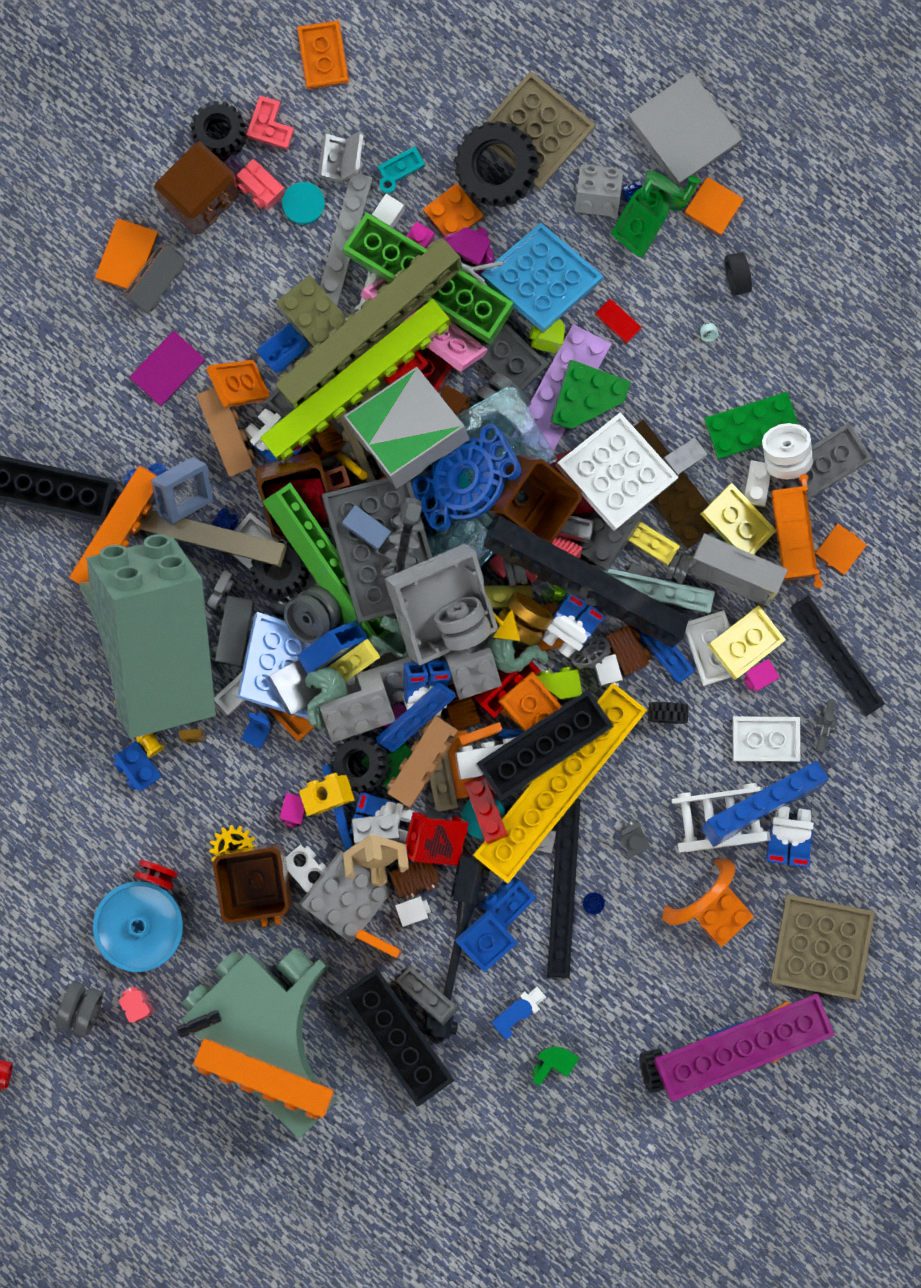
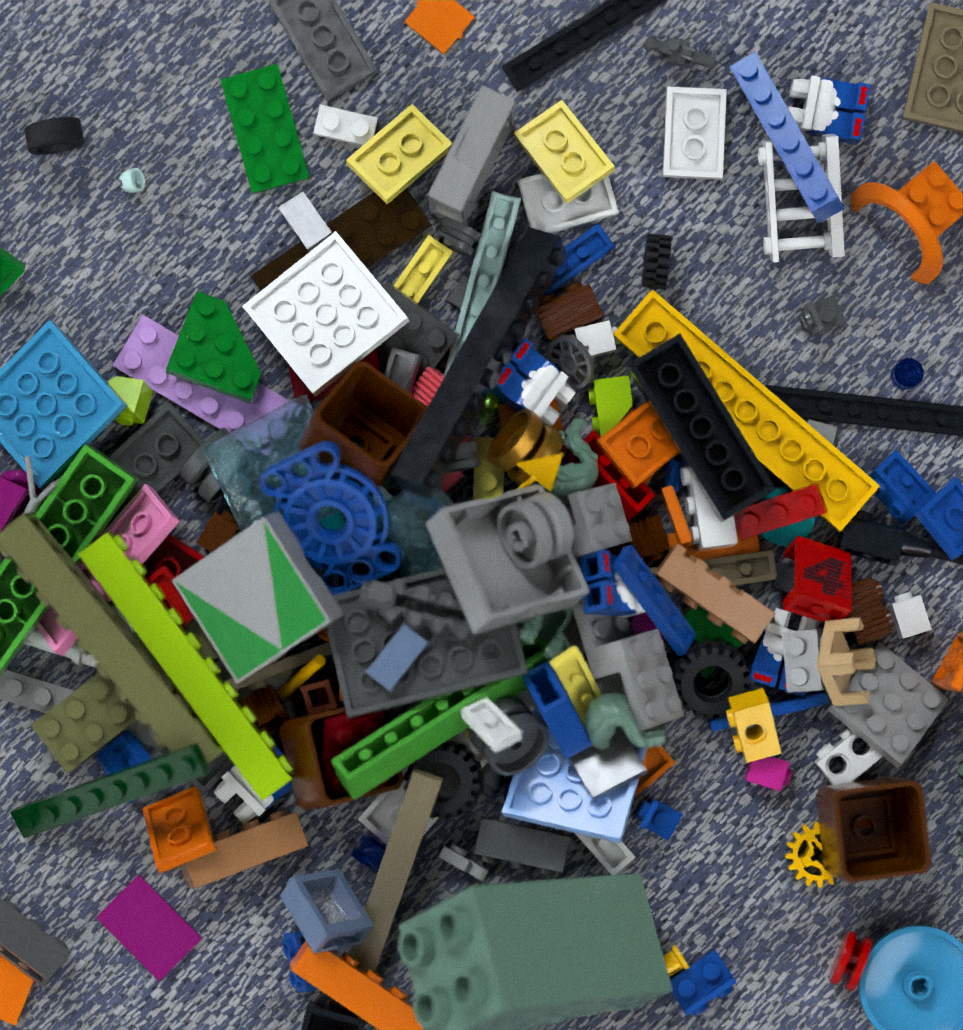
camera: 85 degrees left, 5 degrees up
(192, 735) = (664, 906): pearl gold tile -> none
(264, 331) = (111, 790): none -> dark green plate
(320, 596) = (491, 724): none -> white plate
(618, 321) = (111, 303): red tile -> none
(760, 676) = (610, 135): dark pink brick -> none
(787, 451) = (306, 81): white wheel -> none
(795, 532) = (420, 78): orange container -> none

